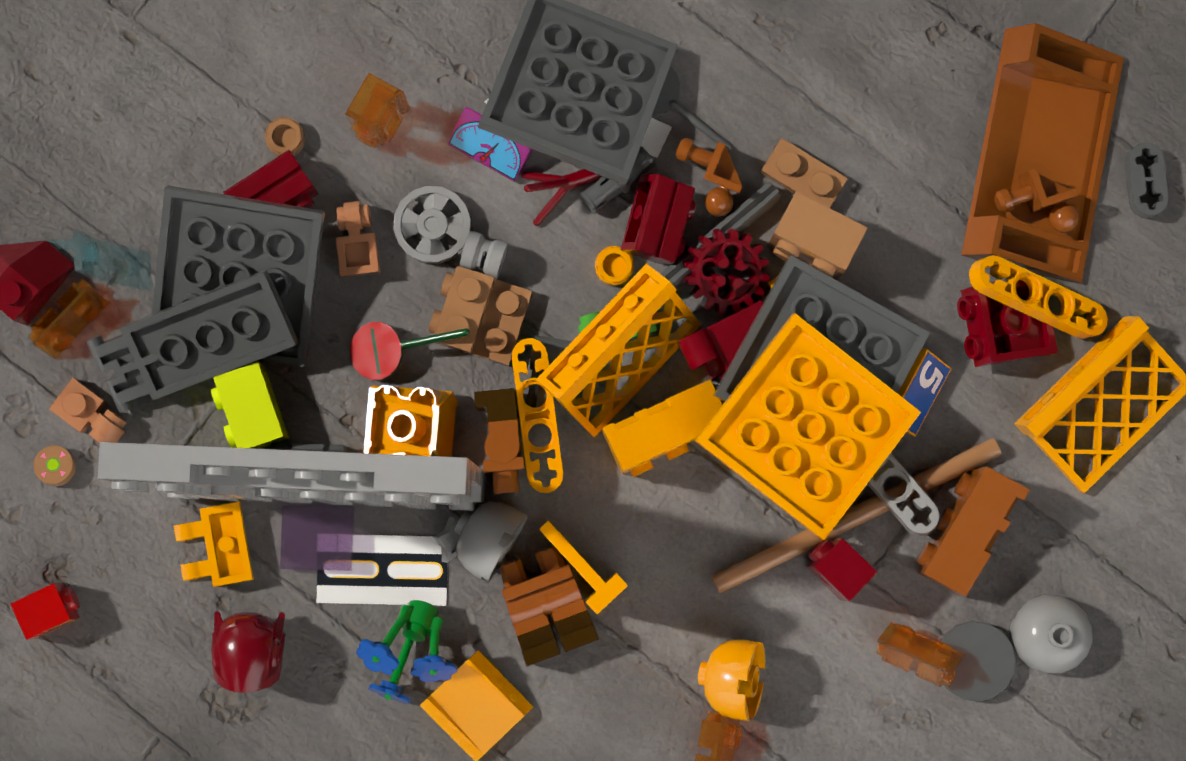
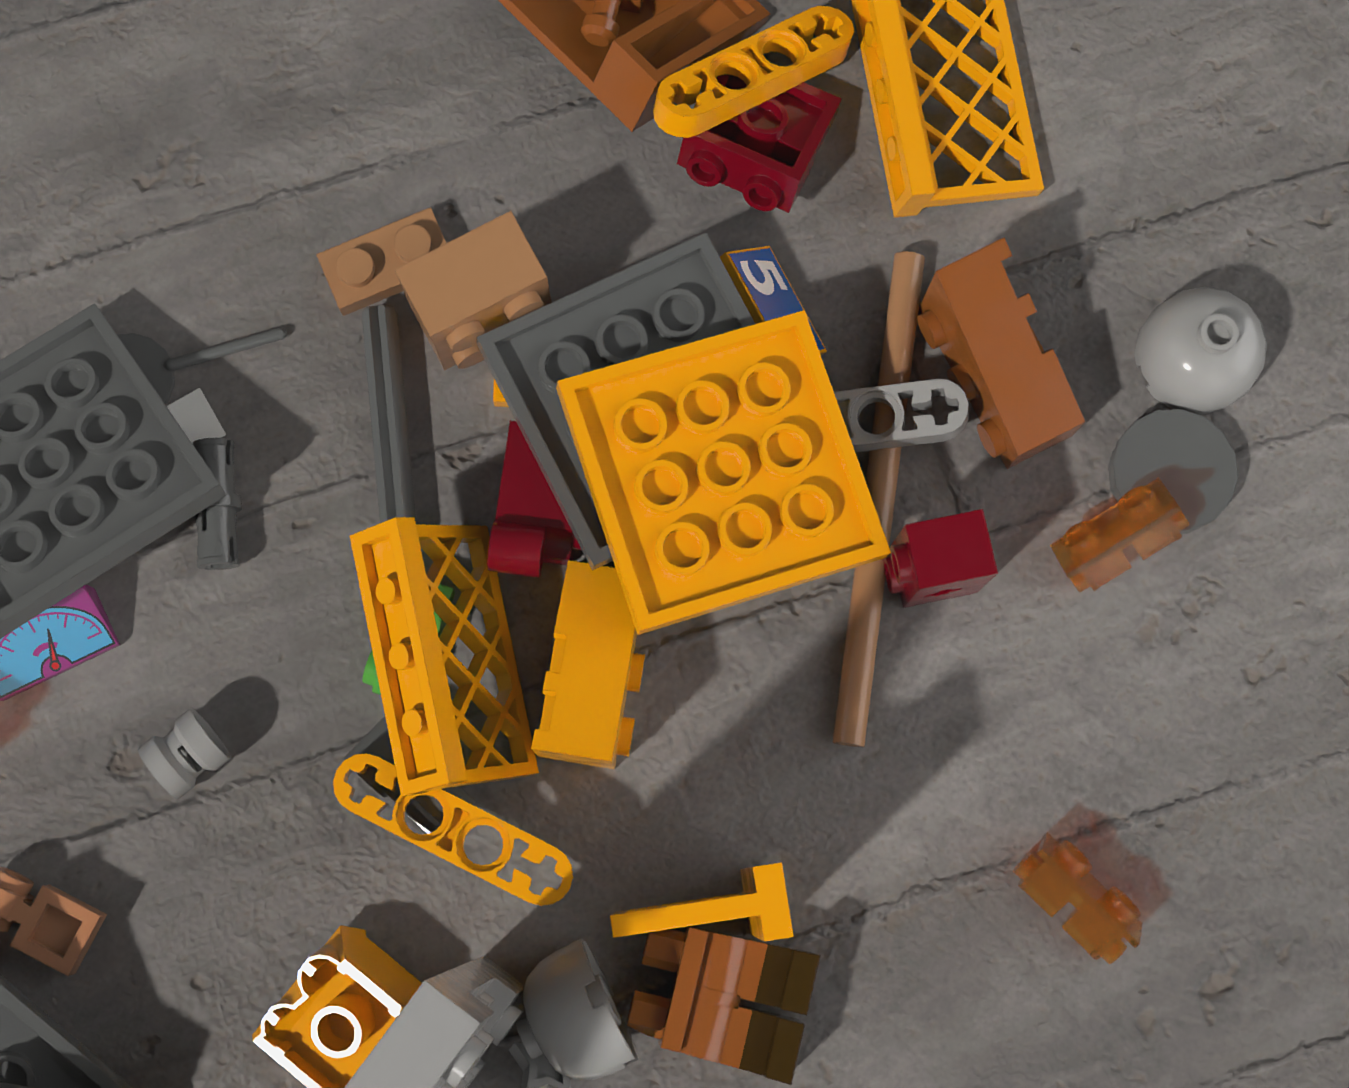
camera: 60 degrees left, 5 degrees down
(379, 349) = (210, 990): piece -> none
(431, 224) = (92, 798): light grey piece -> none
(487, 308) = (262, 816): medium nougat plate -> none
(504, 438) = (452, 897): dark orange hips -> none
(551, 181) = (169, 574): dark red plant -> none
(614, 266) = (327, 588): light orange tile -> none
(658, 219) = (305, 483): dark red brick -> none
(708, 284) = (440, 477): dark red gear -> none
(719, 171) = (303, 364): dark orange piece -> none
(733, 678) = (993, 805): light orange cylinder -> none

